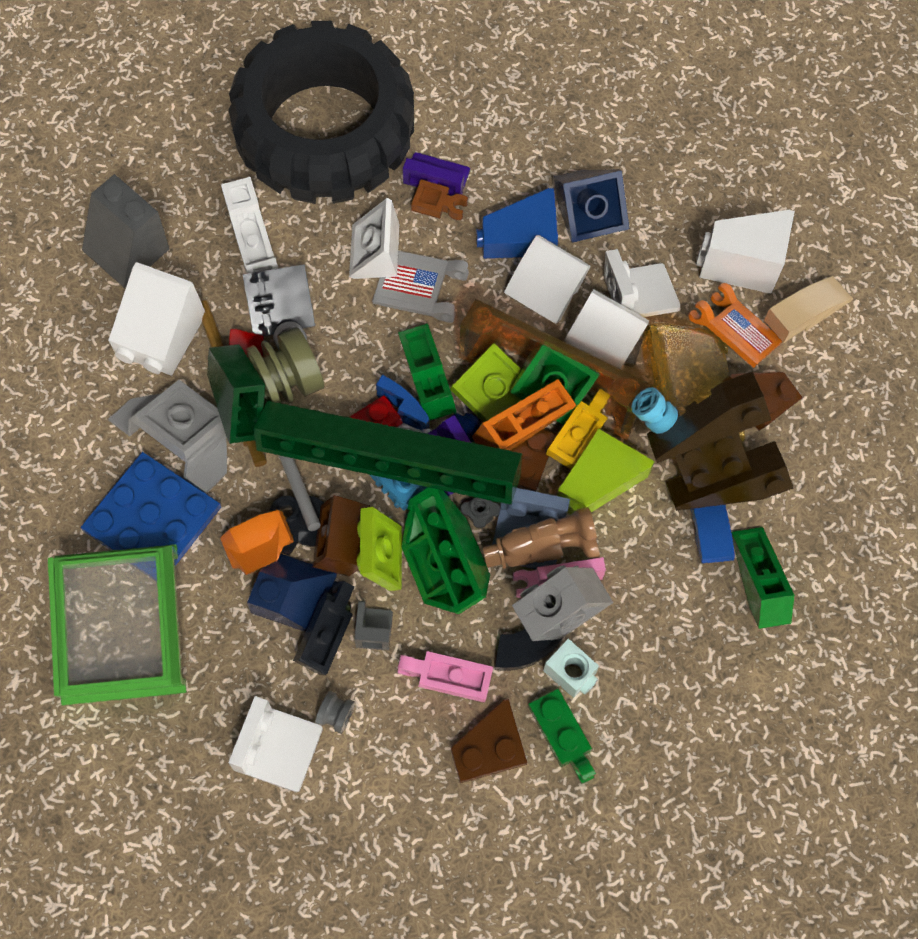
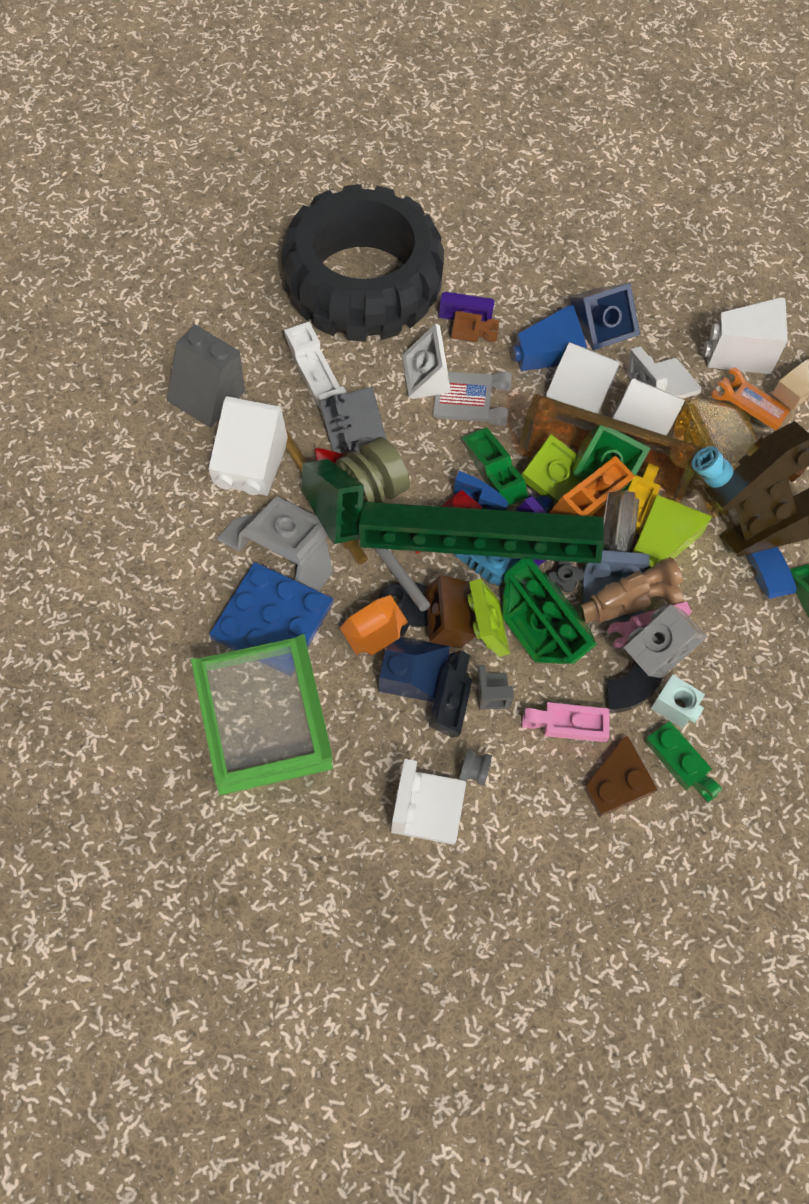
camera: 10 degrees left, 5 degrees down
(547, 459) = (620, 521): none -> clear smoke panel

